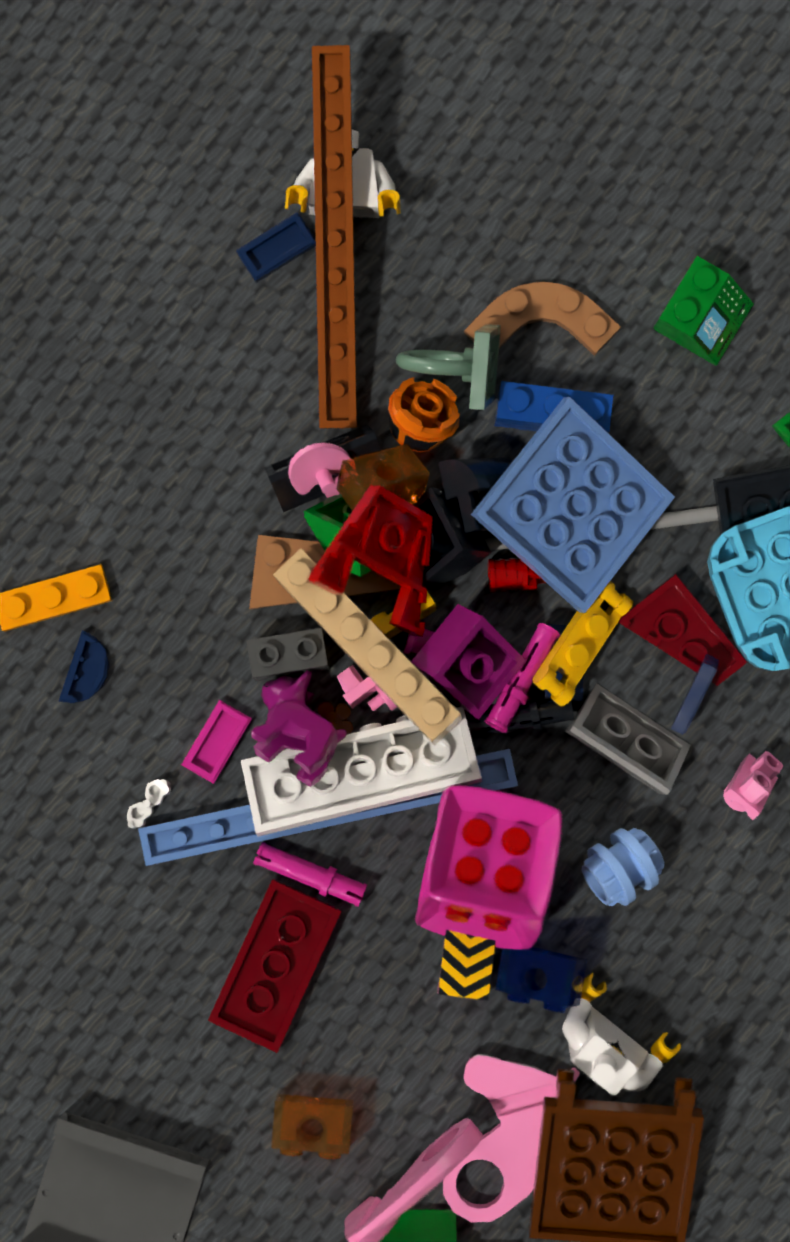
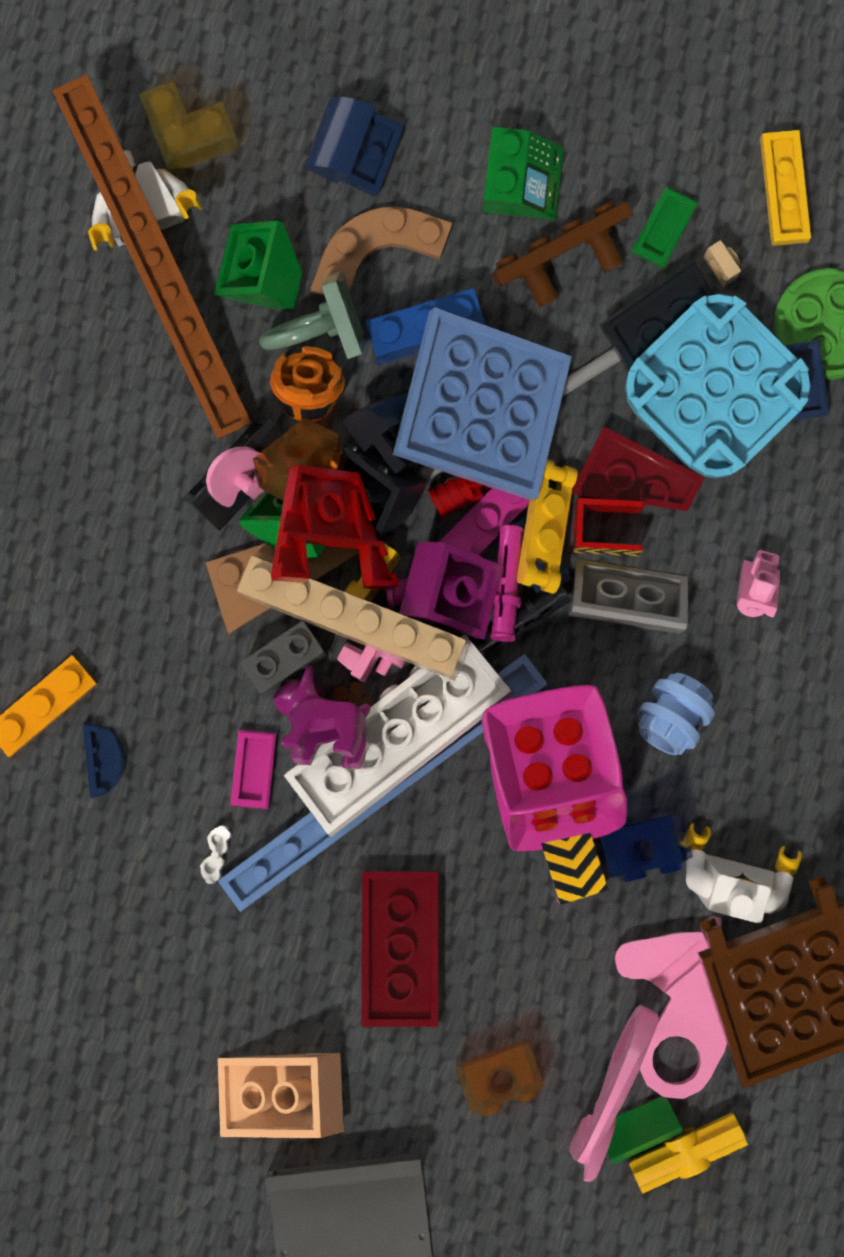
camera: 25 degrees left, 0 degrees up
(107, 1050) = (281, 1096): none -> light nougat slope
(276, 247) = (102, 290): dark blue tile -> none
(310, 874) = (391, 851): dark pink pin -> none
(418, 144) = (183, 136): none -> clear yellow brick
(428, 289) = (259, 266): none -> green slope
(526, 611) = (483, 521): none -> dark pink plate
(563, 216) = (353, 145): none -> dark blue brick
(643, 646) = (603, 505): none -> red piece
(695, 694) = (671, 519): dark blue tile -> none
(729, 386) = (575, 233): none -> reddish brown plate

